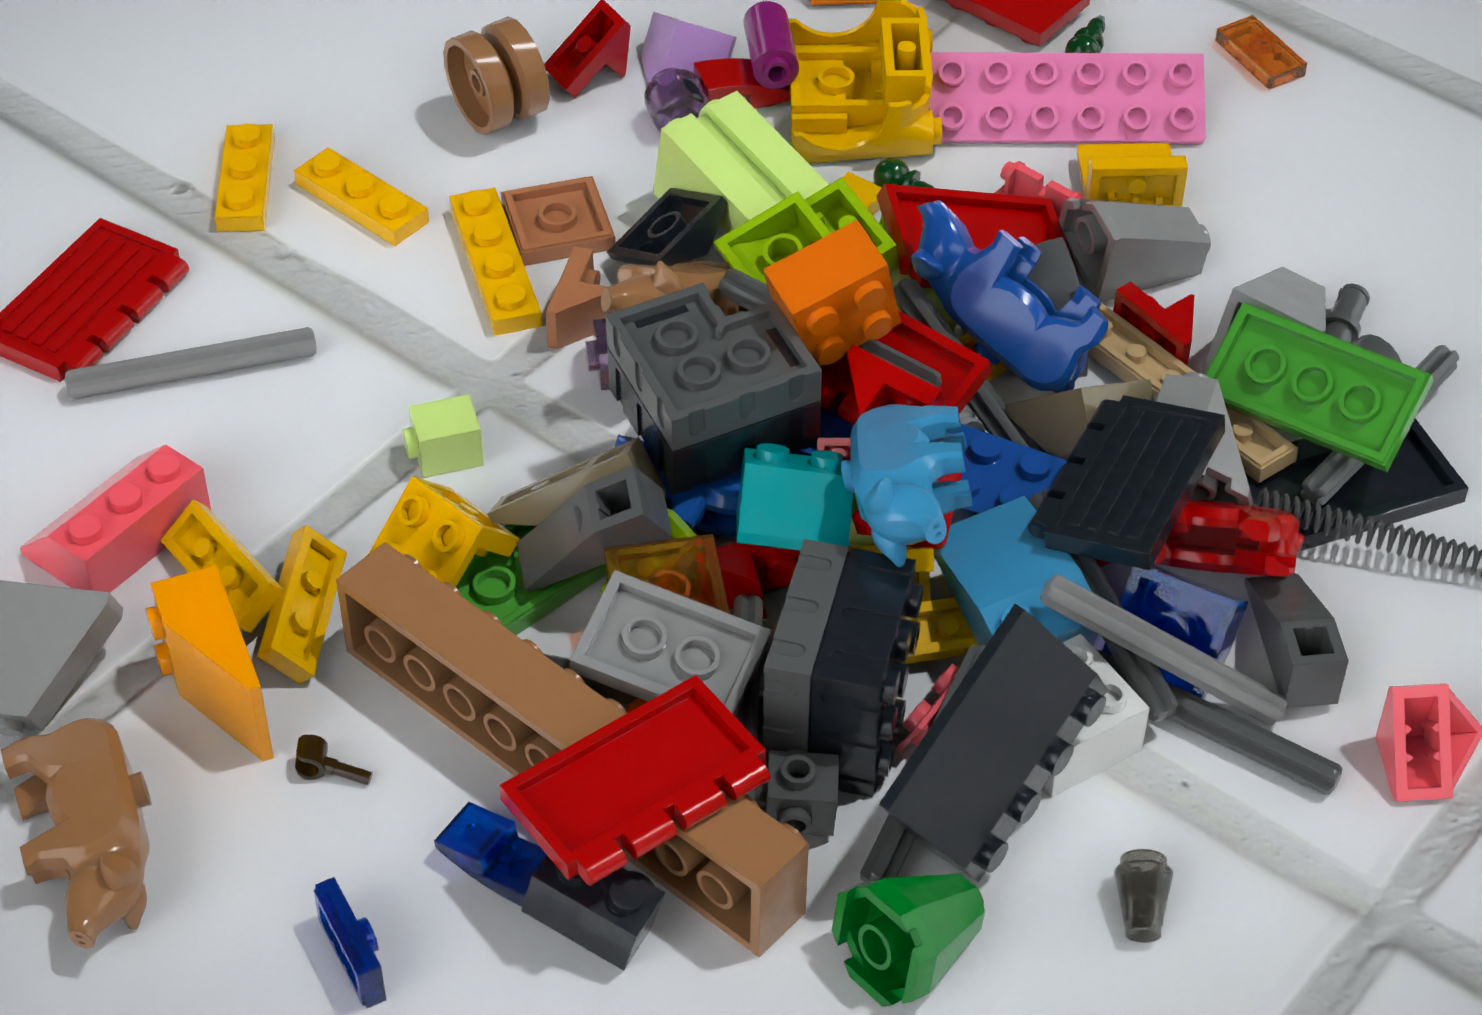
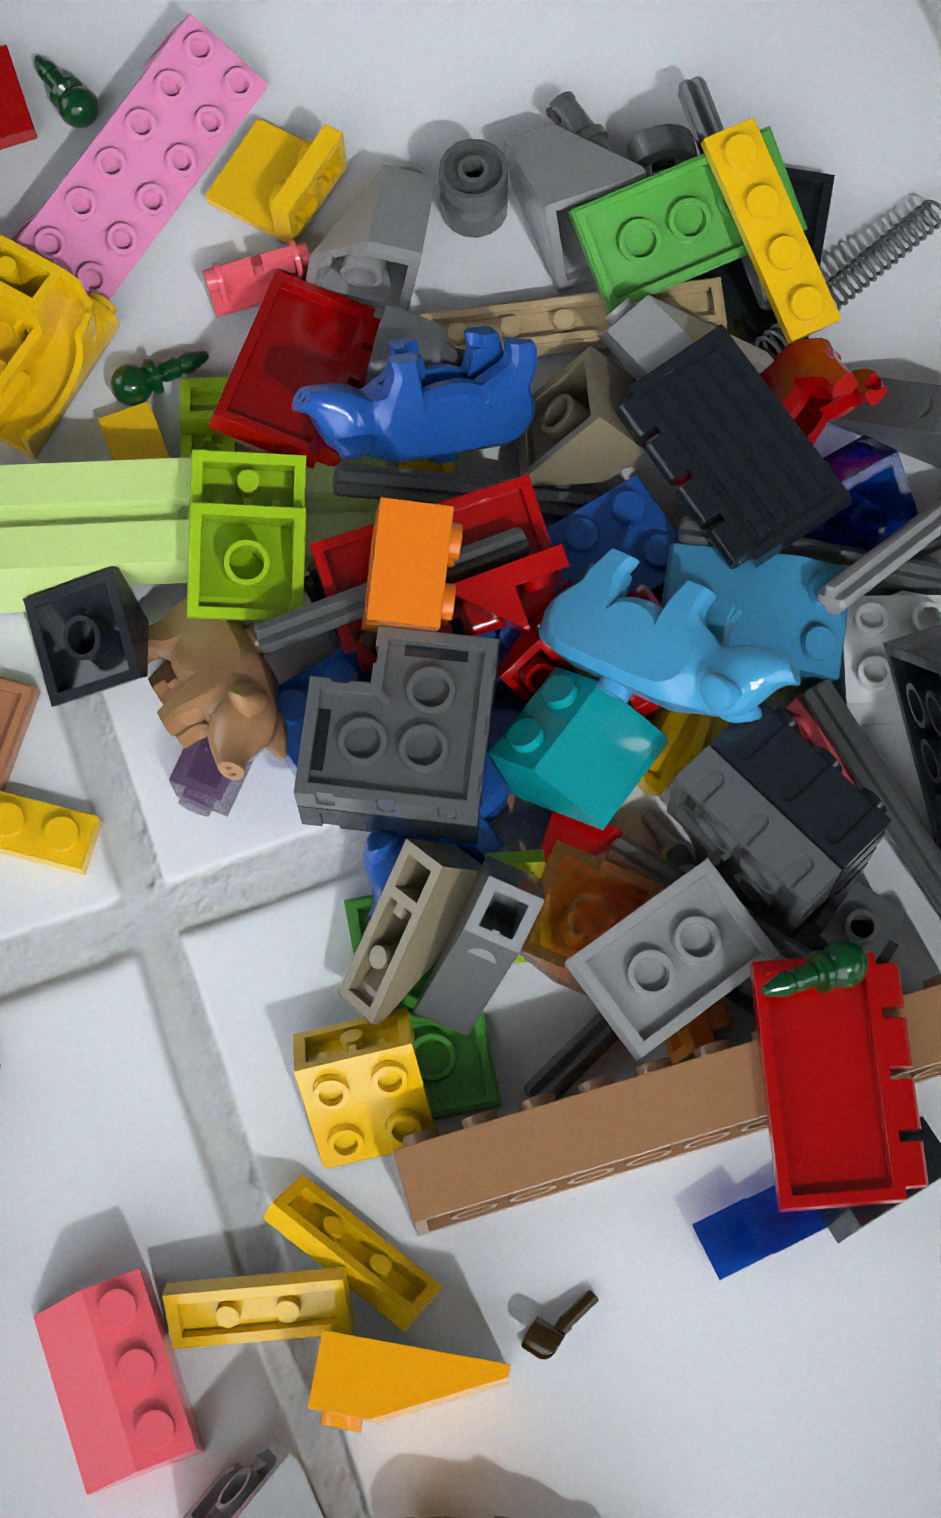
camera: 55 degrees left, 25 degrees up
(352, 942) = (791, 1412): clear blue plate -> none
(444, 436) = (214, 1002): yellowish green brick -> none
(575, 301) = (116, 780): nougat slope -> none
(733, 725) = (839, 965): none -> dark green bar
(1166, 326) = (509, 280): red slope -> none
(1224, 262) = (473, 187): none -> dark grey wheel
(1346, 428) = (770, 230): none -> yellow plate

